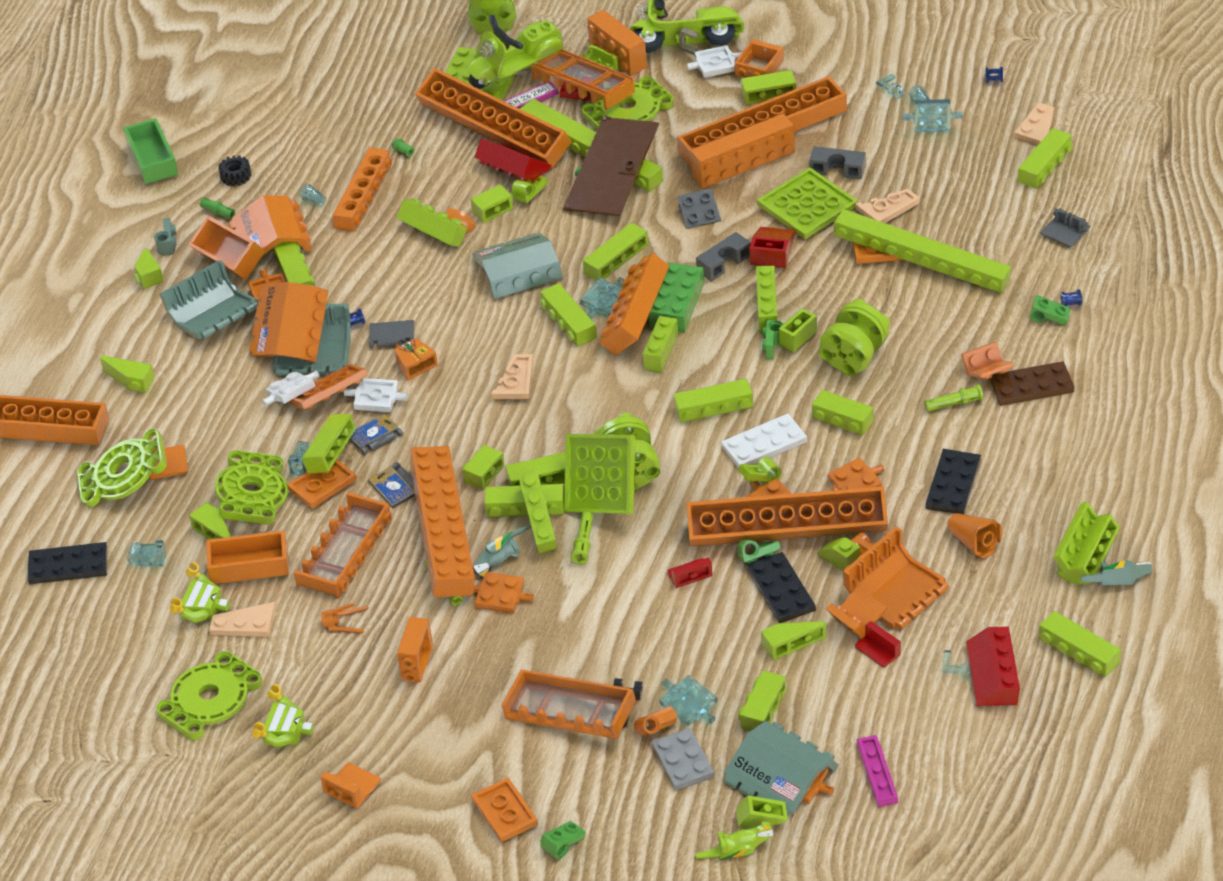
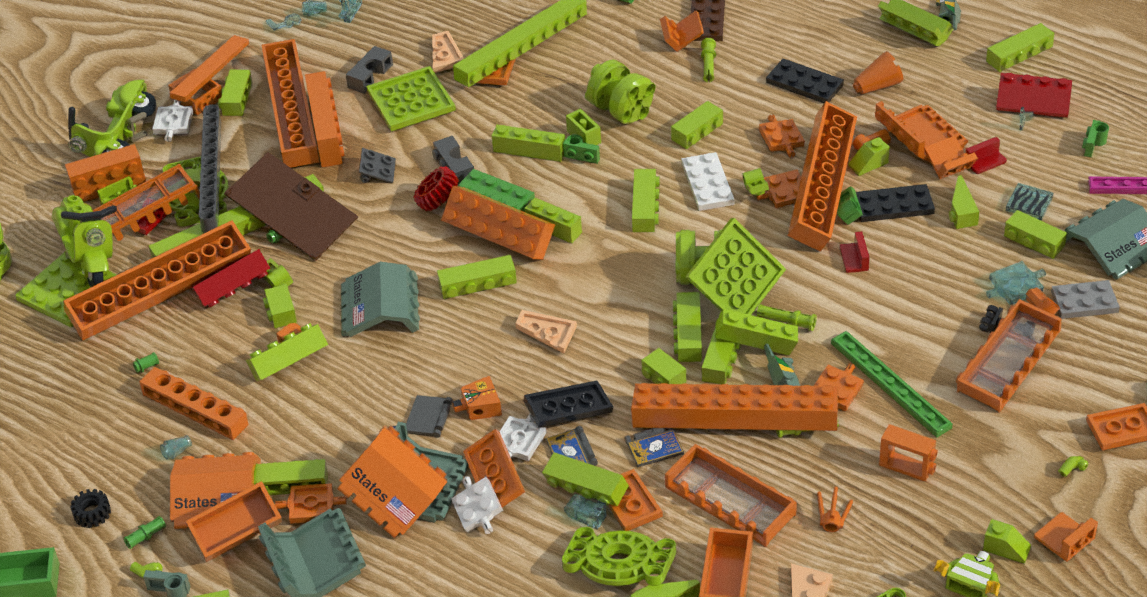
camera: 75 degrees left, 0 degrees up
(180, 222) = (140, 570): none -> lime arm
(331, 741) = (1006, 542): none -> lime slope
(420, 412) = (568, 403): none -> black plate
(444, 775) = (1073, 462): none -> lime arm
(518, 631) = (892, 384): none -> bright green tile
(539, 93) = (131, 251): tile -> none
(601, 297) = (462, 249): clear light blue plate -> none
(615, 252) = (406, 230): lime brick -> none
(645, 100) = (210, 168): none -> dark grey beam
(670, 250) = (435, 188): none -> red gear
(771, 247) = (464, 125): red slope -> none
(786, 56) = (209, 68): none -> orange tile
(820, 693) = (1030, 201): none -> clear light blue tile
(945, 728) = (1097, 136): none -> bright green plate

